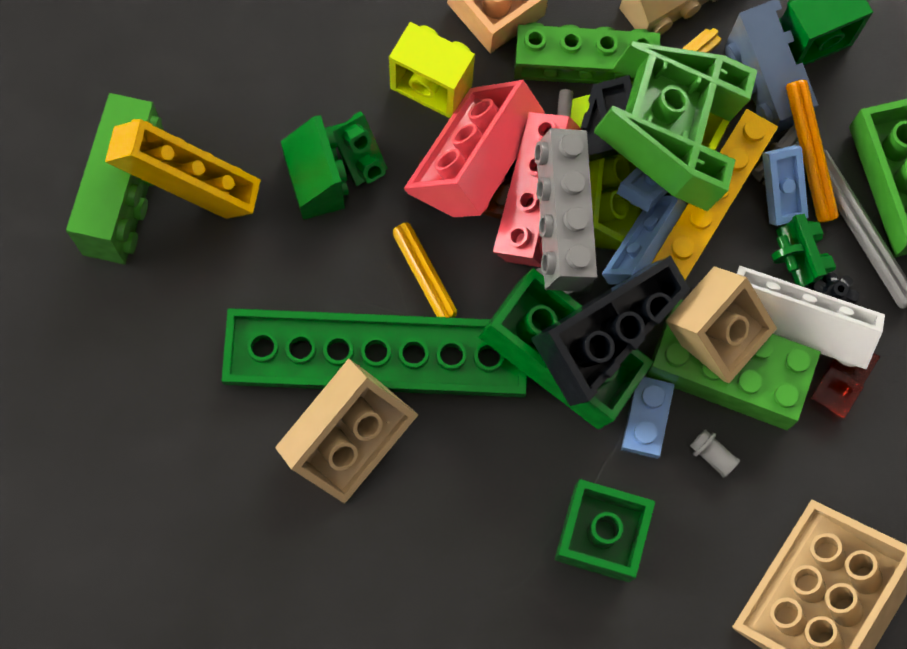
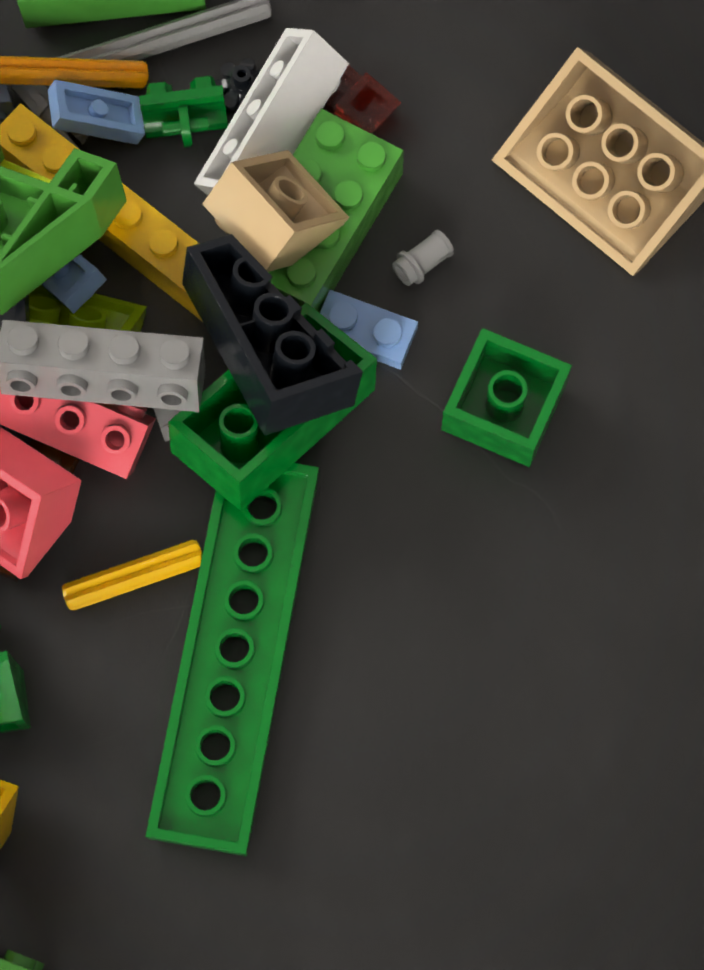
camera: 75 degrees left, 0 degrees up
(345, 431) = (338, 697): tan slope -> none
(644, 239) = (142, 290): light blue plate -> none

